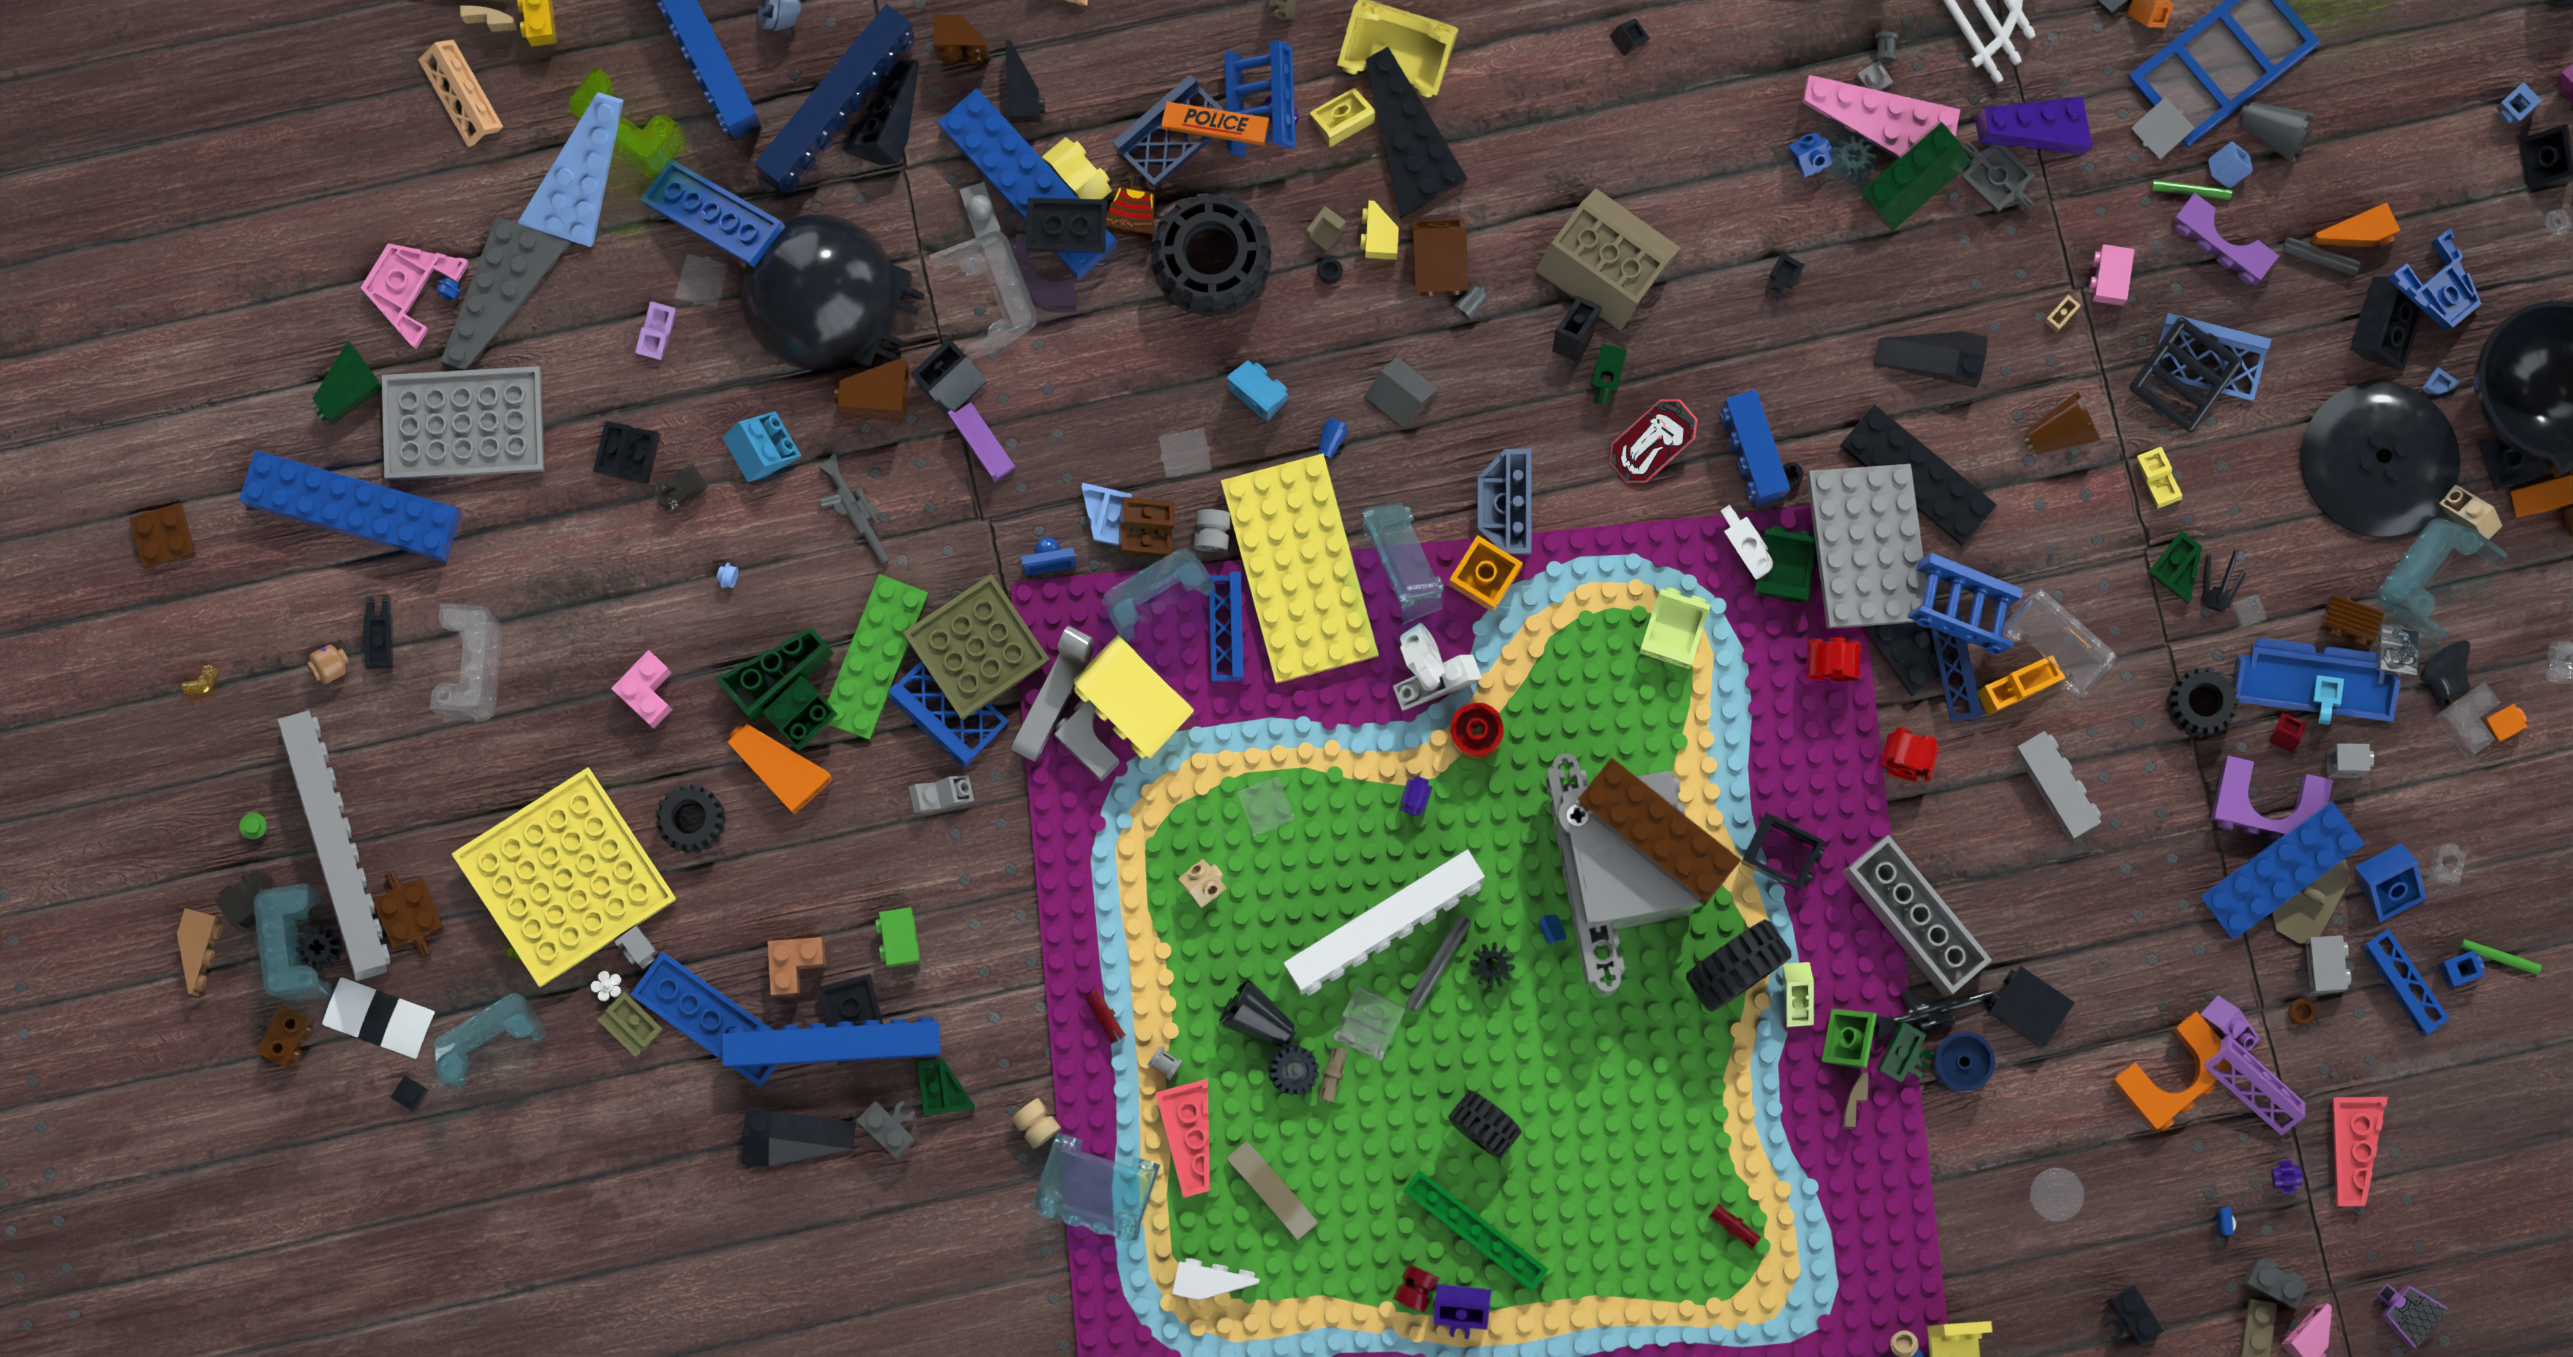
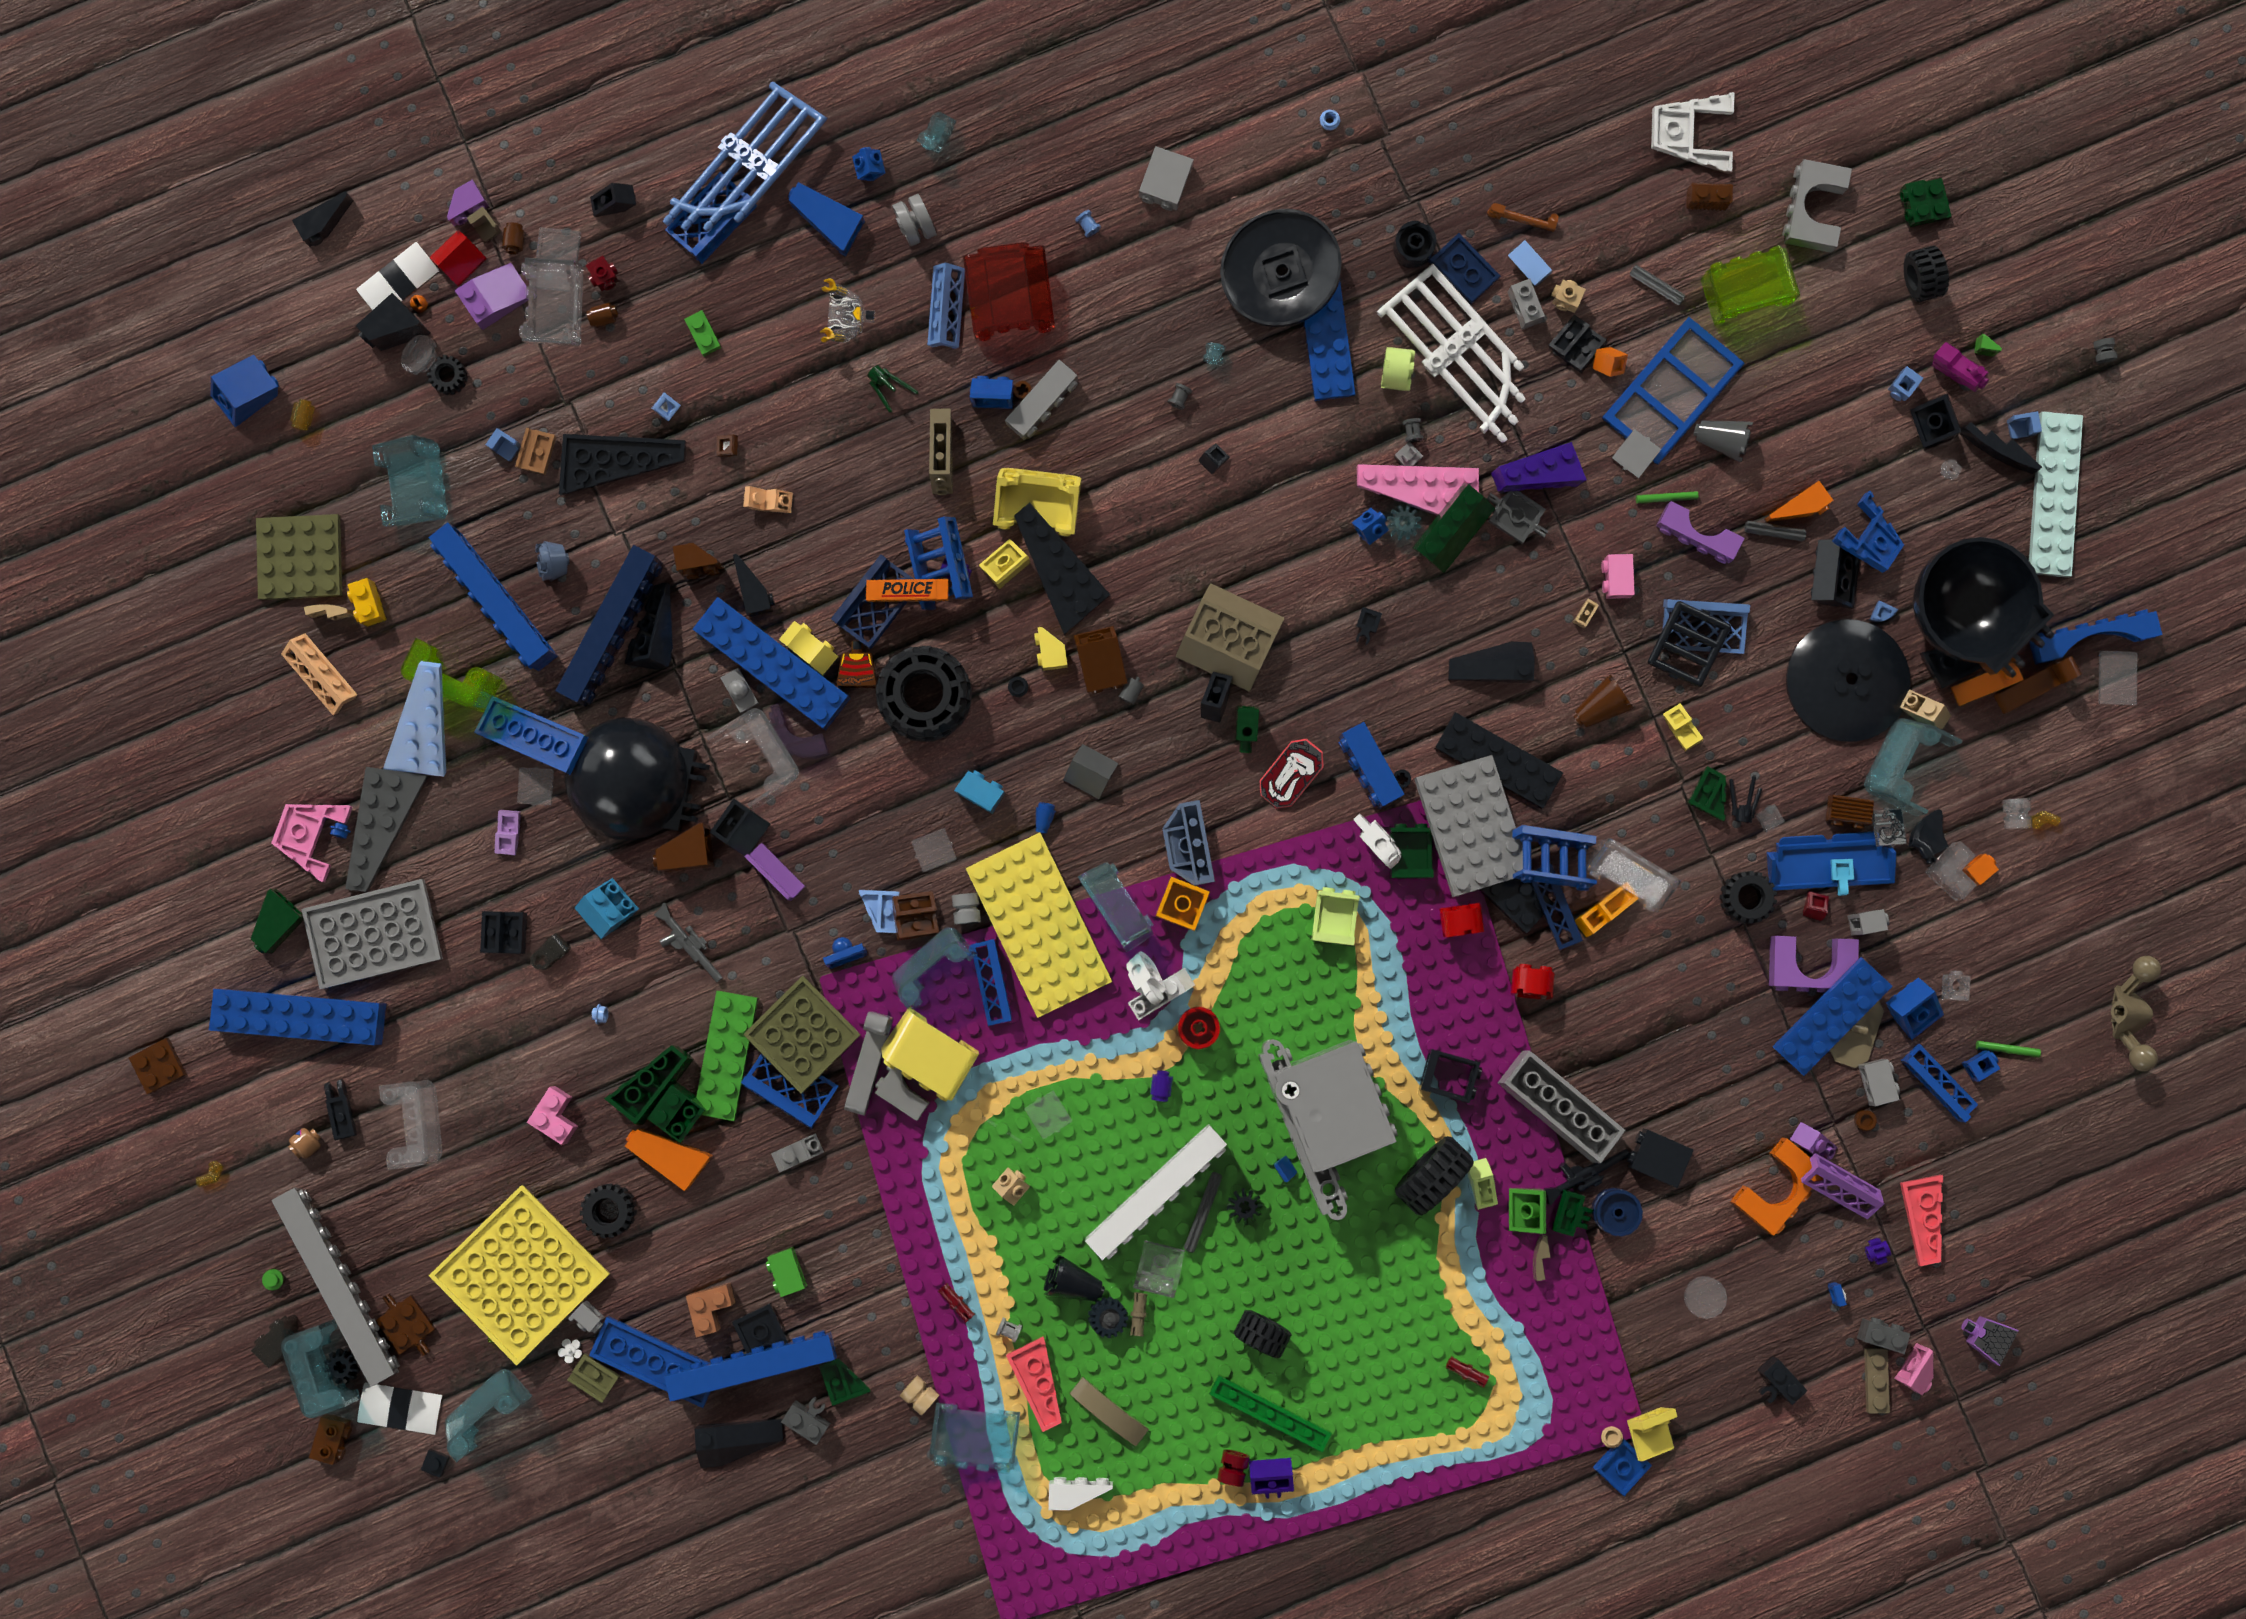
camera: 10 degrees left, 5 degrees up
(196, 941) = (246, 1379): medium nougat slope -> none
(1066, 225) = (807, 693): black plate -> none
(1325, 228) = (1008, 654): dark tan panel -> none
(1658, 831) = (1356, 1094): reddish brown brick -> none
(2057, 785) = (1649, 982): light grey brick -> none
(2230, 165) = (1693, 472): medium blue panel -> none

